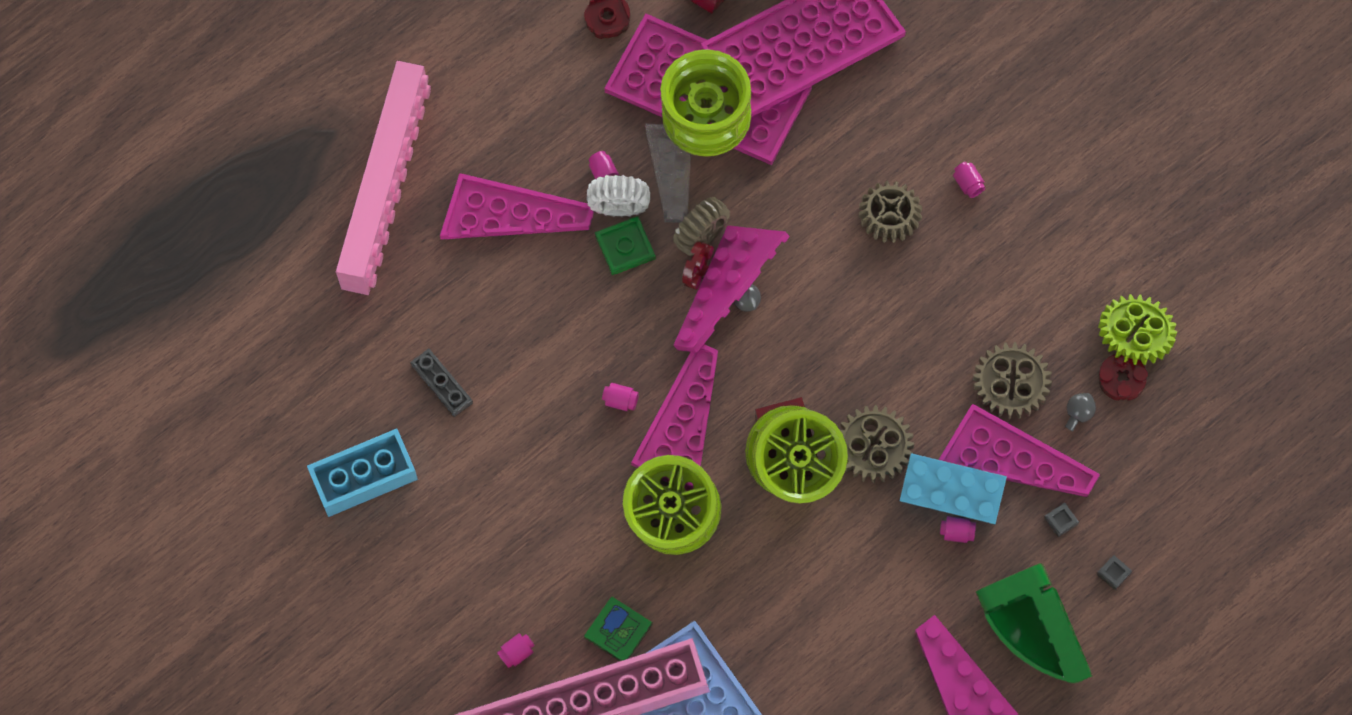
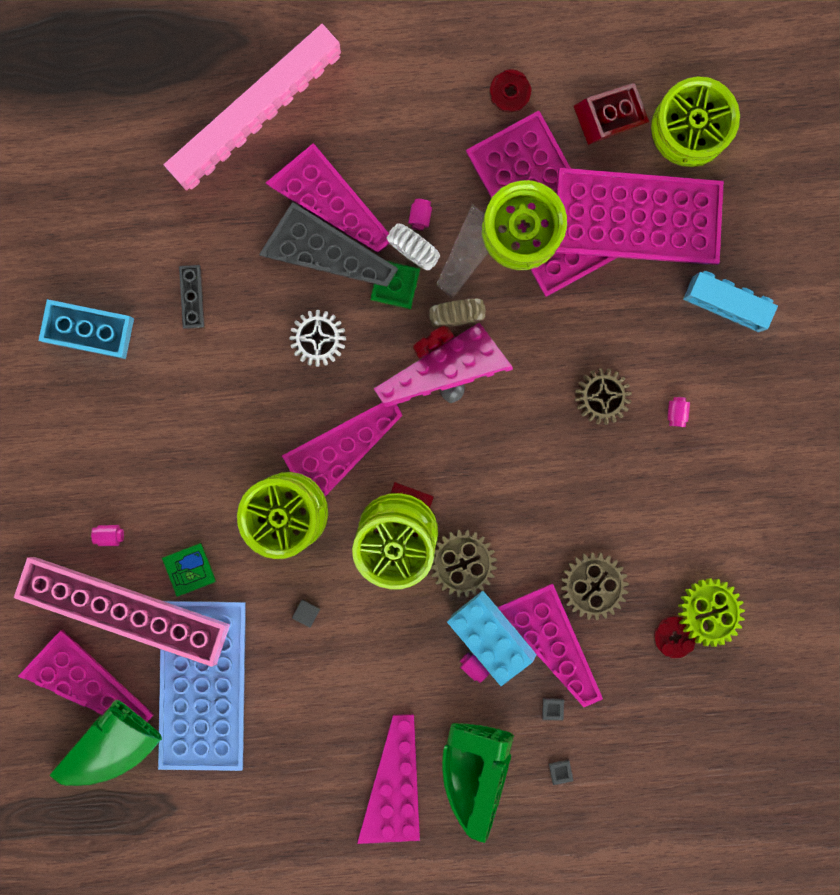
camera: 30 degrees right, 20 degrees up
(527, 257) = (316, 245): none -> dark grey wing
(601, 325) = (317, 328): none -> white gear
(620, 397) = (309, 400): dark pink brick -> none
(760, 593) = (306, 613): none -> dark grey tile
(940, 54) = (730, 302): none -> medium azure brick
(1080, 409) = (626, 641): dark grey piece -> none

